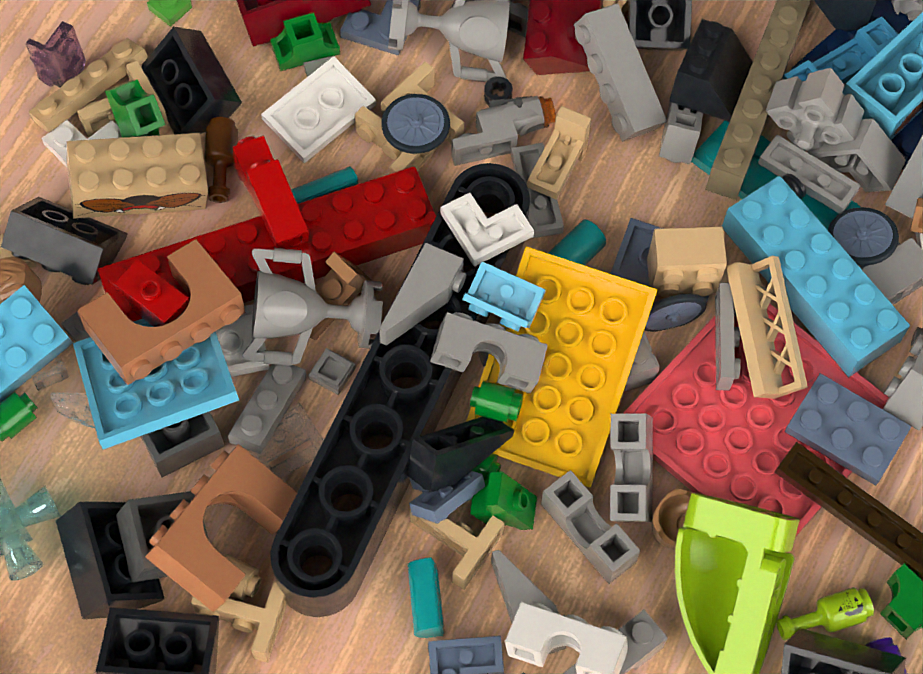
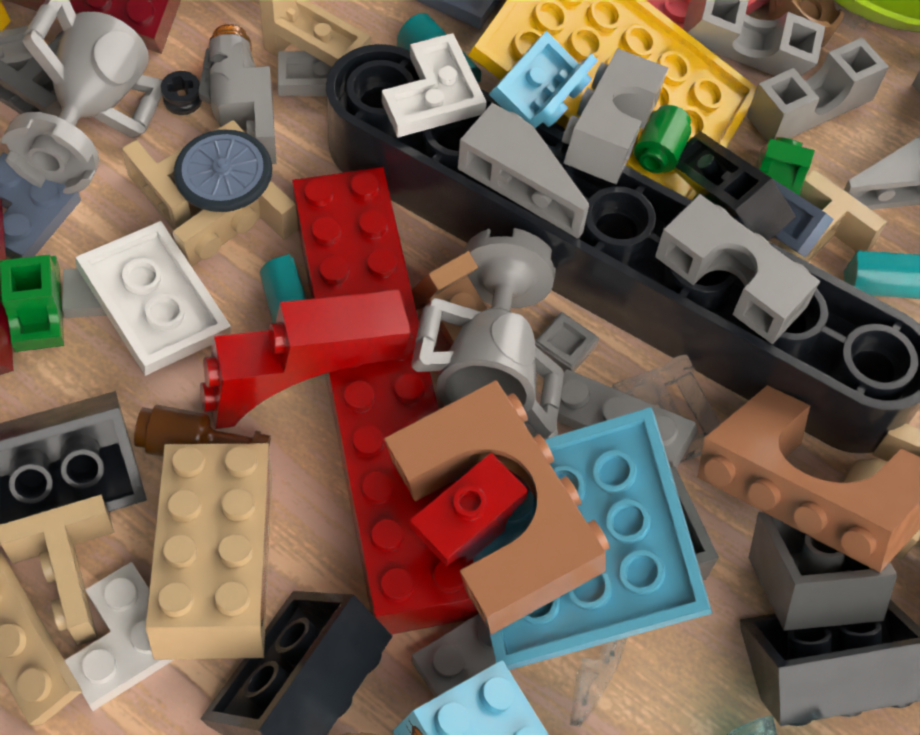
camera: 85 degrees left, 5 degrees down
(135, 110) = (102, 532): green brick -> none
(347, 468) = (710, 240): none -> light grey arch

